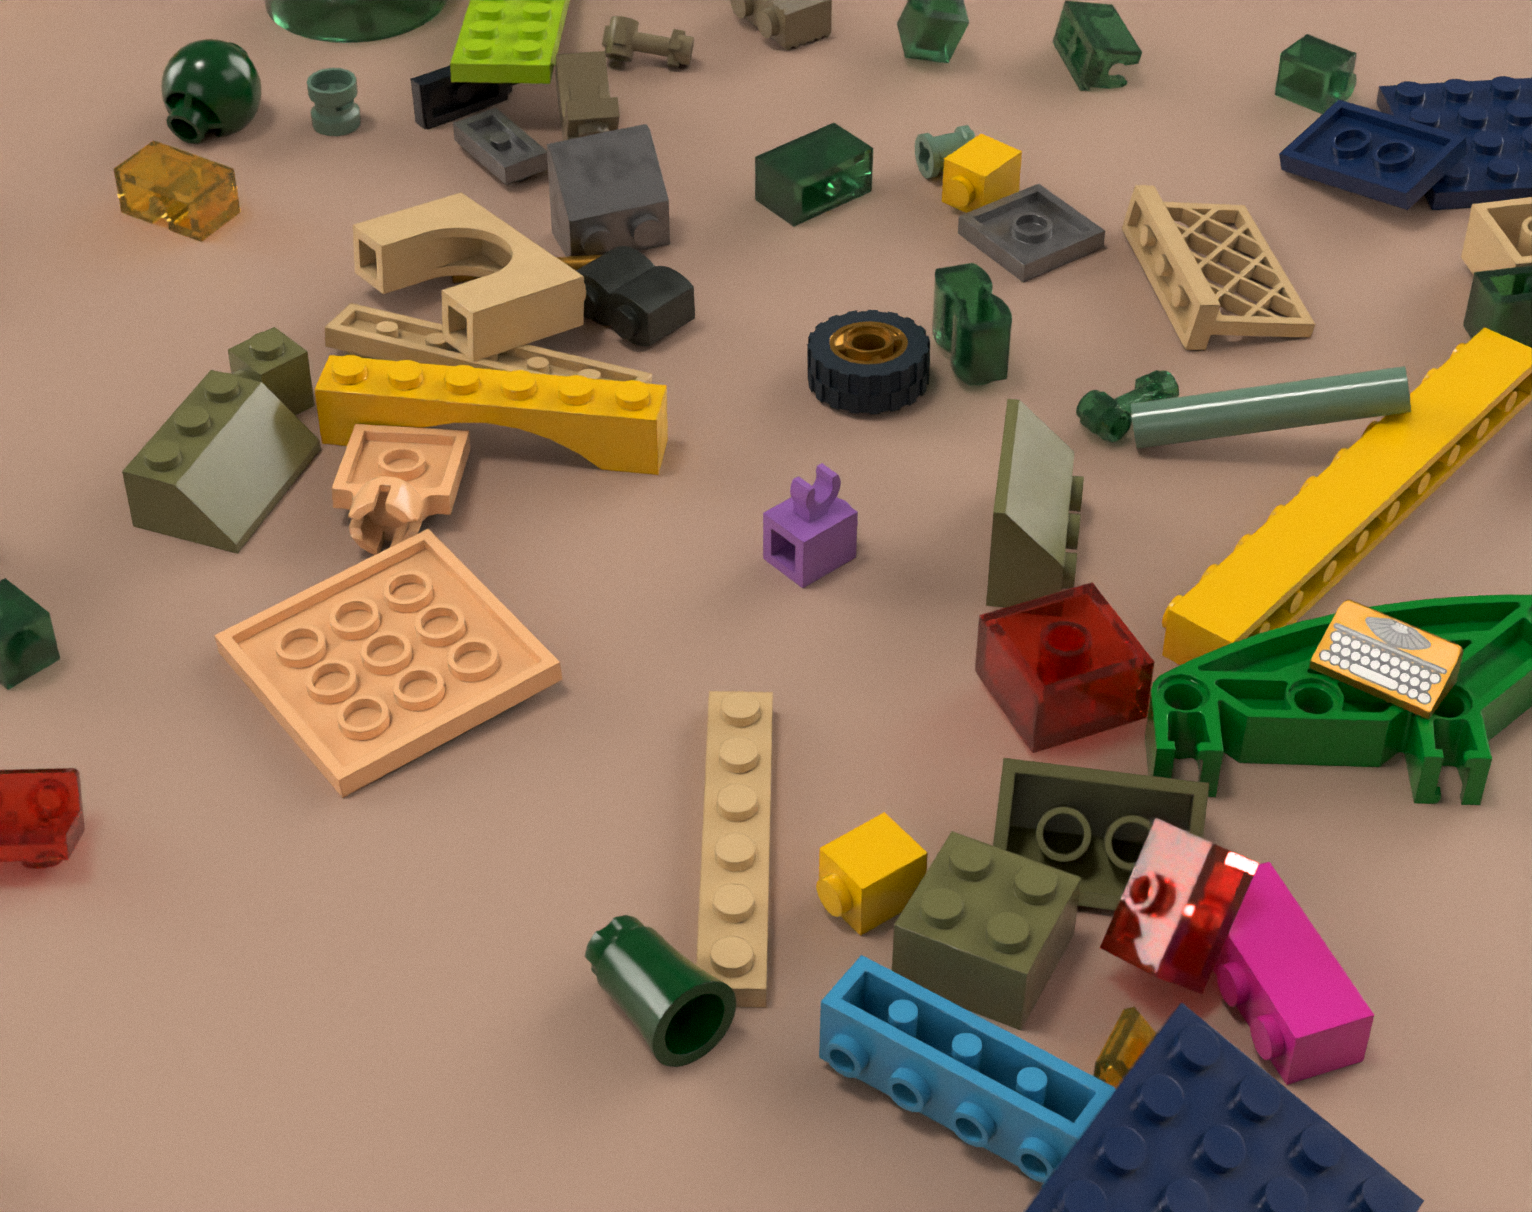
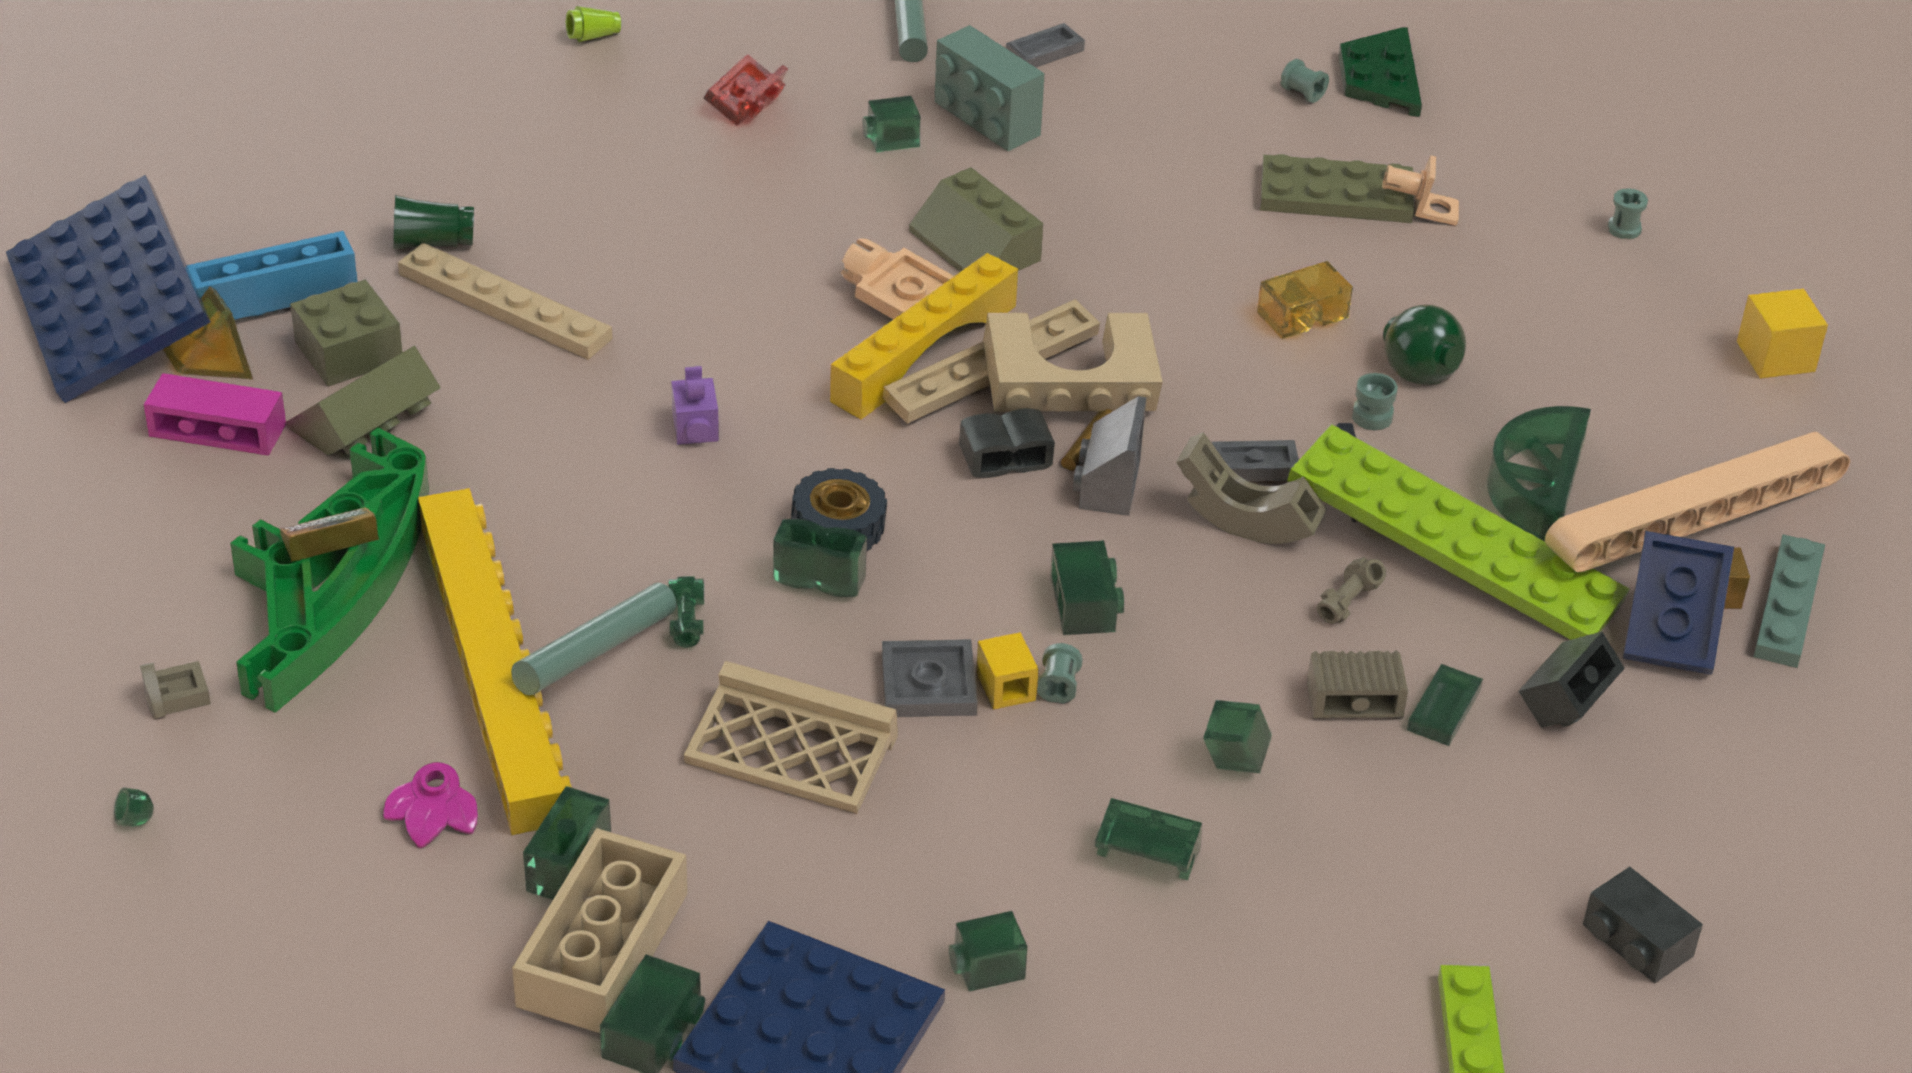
camera: 120 degrees right, 0 degrees up
(278, 365) = (1043, 267): olive brick -> none
(387, 661) = (756, 239): light nougat plate -> none
(870, 873) = (424, 318): yellow brick -> none
(1033, 512) = (613, 484): olive slope -> none
(1063, 667) = (478, 436): clear red brick -> none
(1179, 906) = (272, 366): clear red brick -> none
(1373, 154) = (836, 895): dark blue plate -> none

